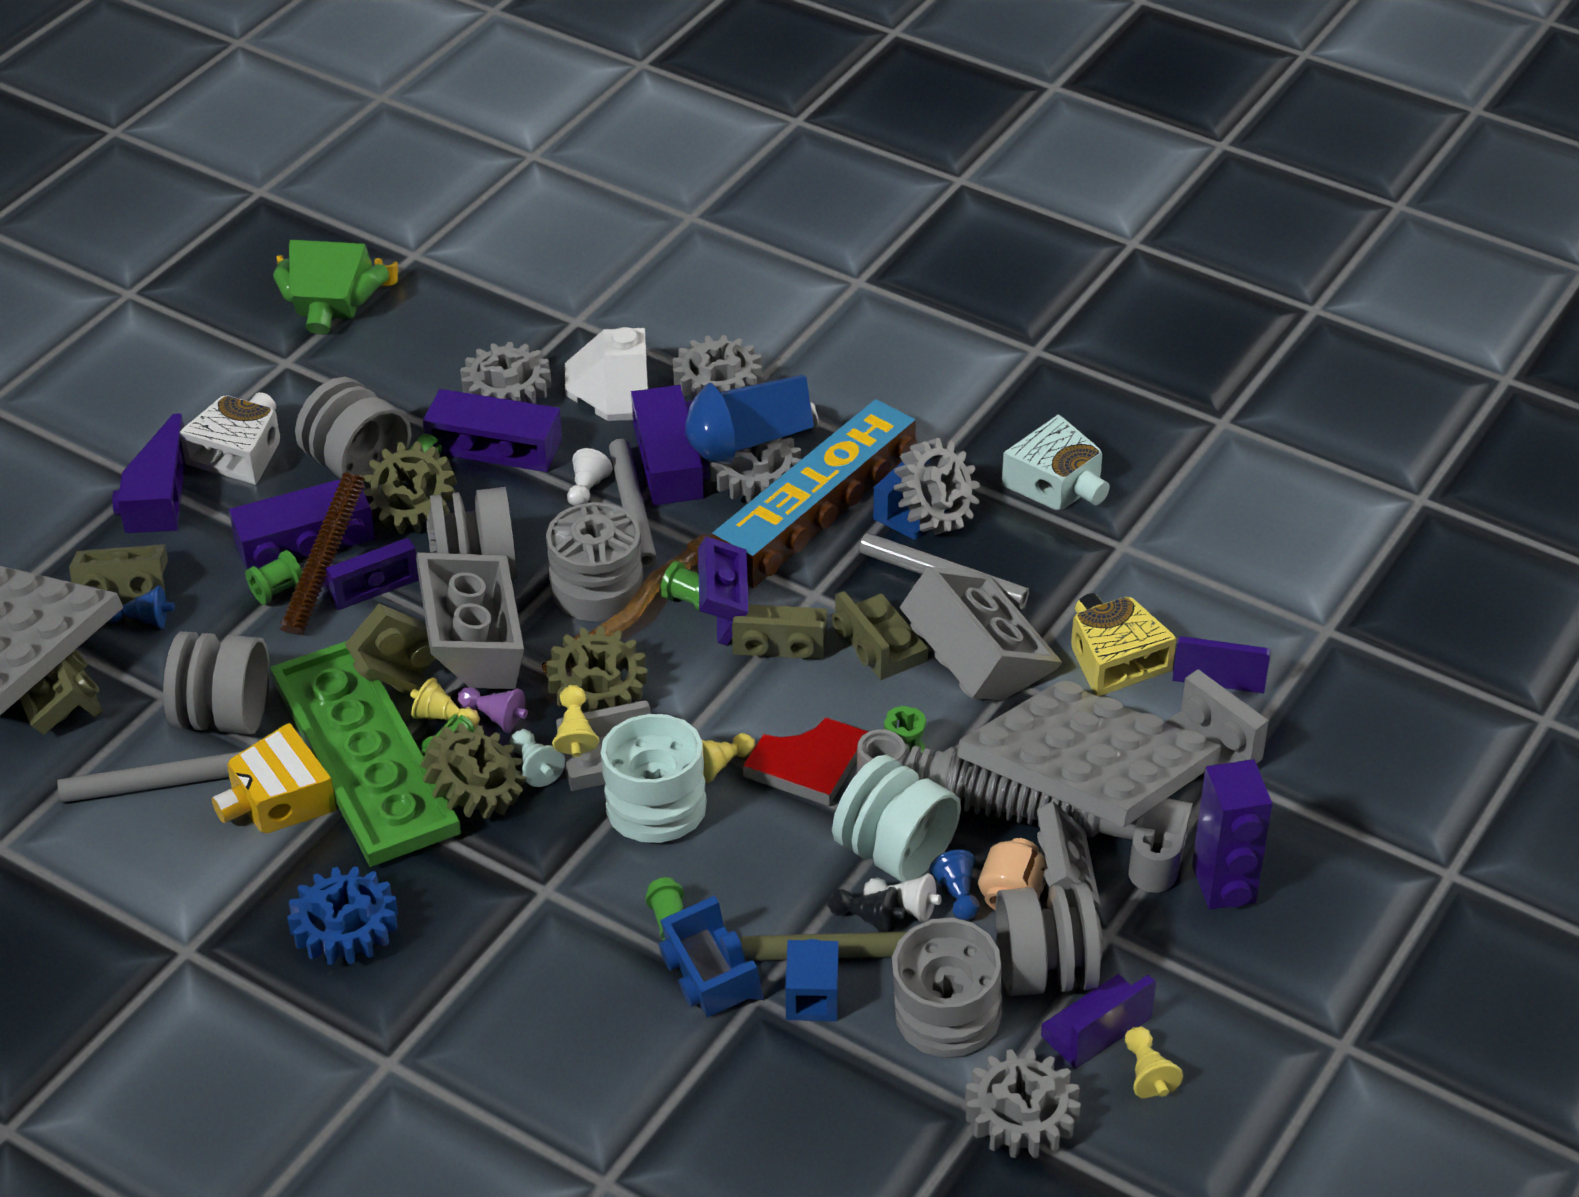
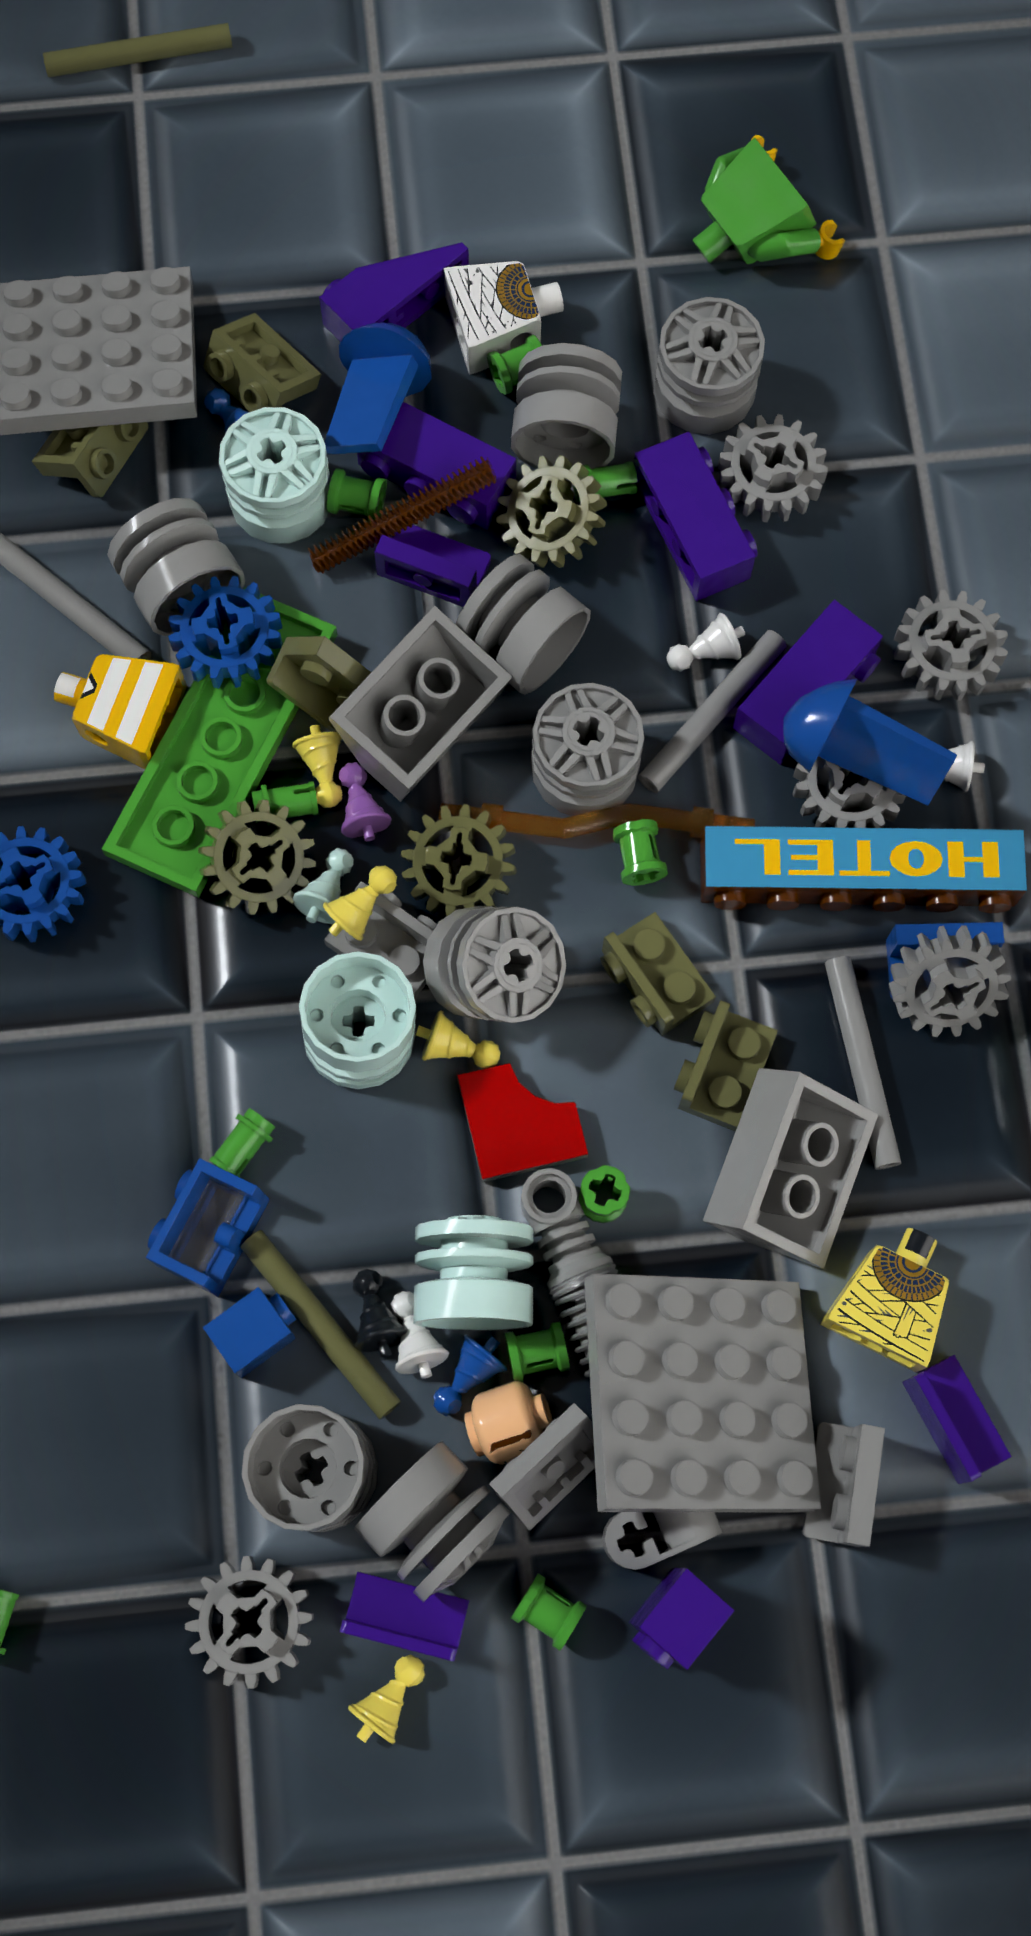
camera: 50 degrees right, 30 degrees up
(213, 503) = (383, 369): none -> blue piece
(214, 590) = (276, 474): none -> light aqua wheel
(283, 453) = (505, 366): none -> bright green bush
(297, 682) = (200, 633): none -> blue gear
(405, 356) = (708, 365): none -> light grey wheel
(608, 372) = (862, 555): white slope -> none
(694, 675) = (495, 963): none -> light grey wheel
(722, 584) = (647, 887): dark purple panel -> none
(978, 833) = (537, 1351): none -> bright green bush
(1165, 933) = (549, 1612): none -> bright green bush

